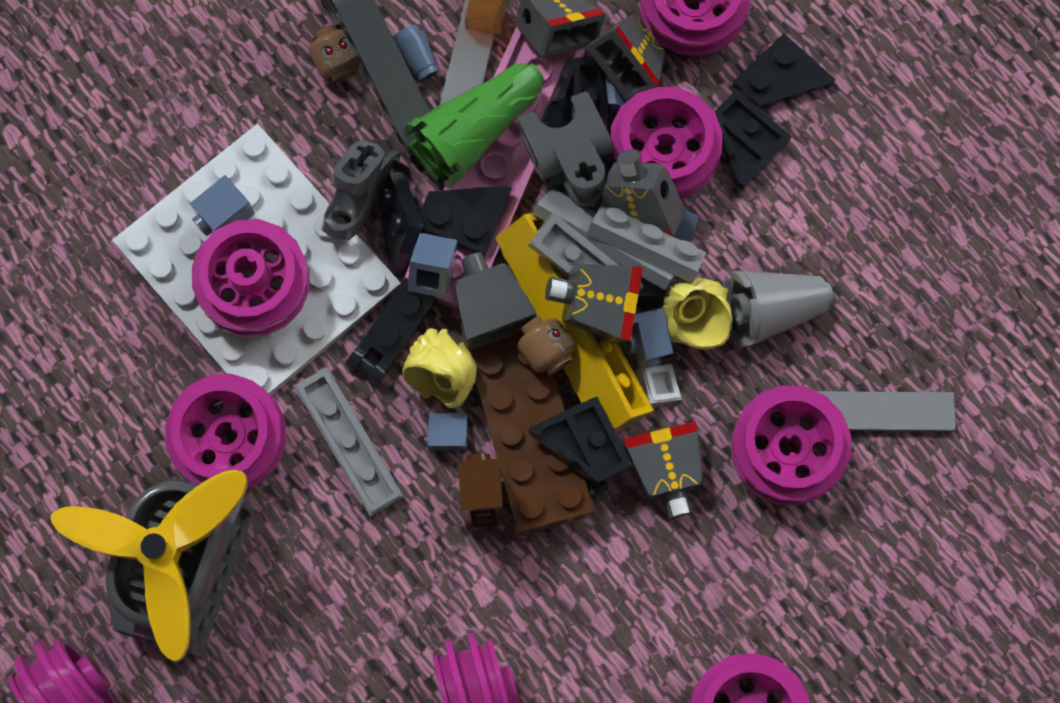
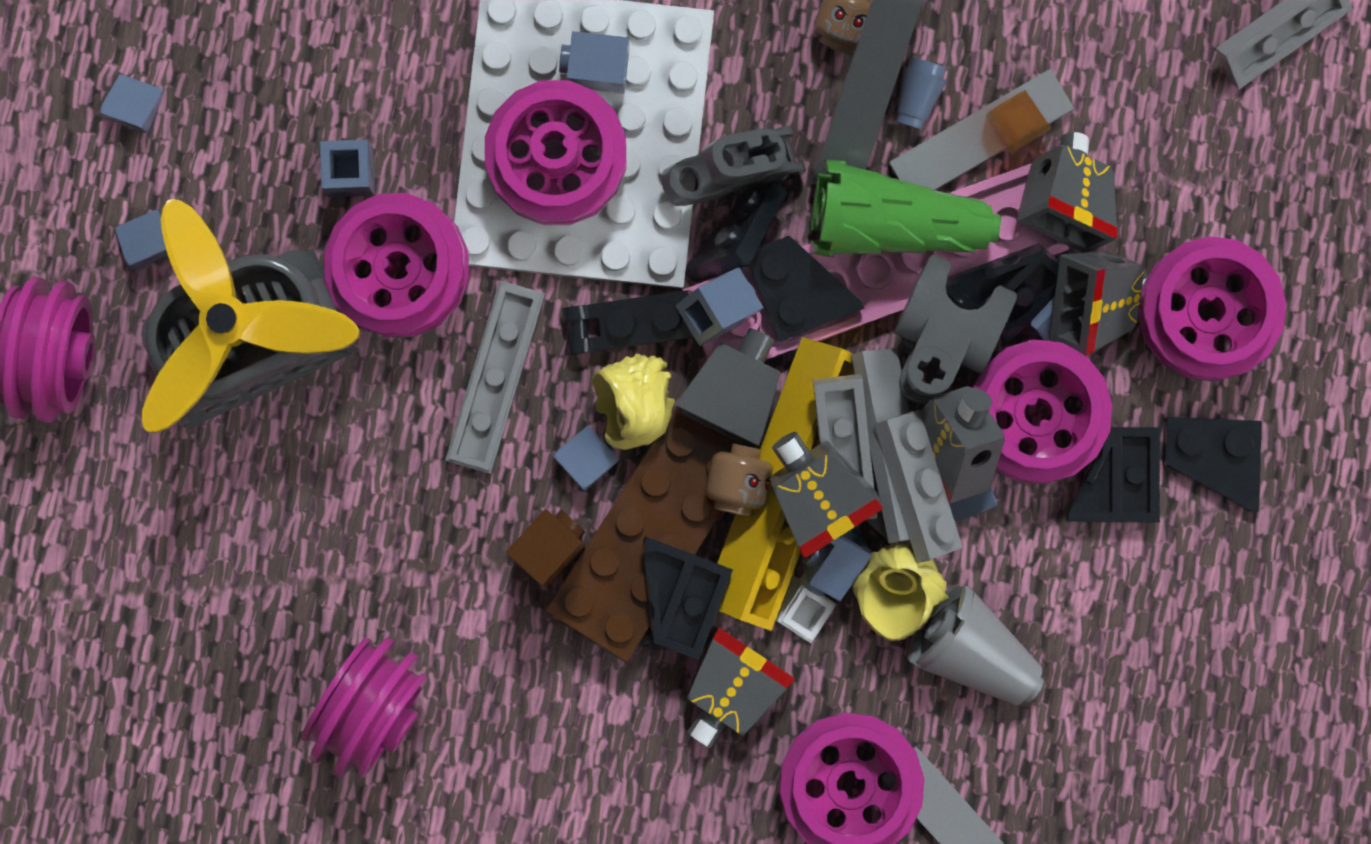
camera: 45 degrees right, 10 degrees up
(63, 577) = (142, 240): none -> sand blue slope
(140, 411) = (347, 168): none -> sand blue brick

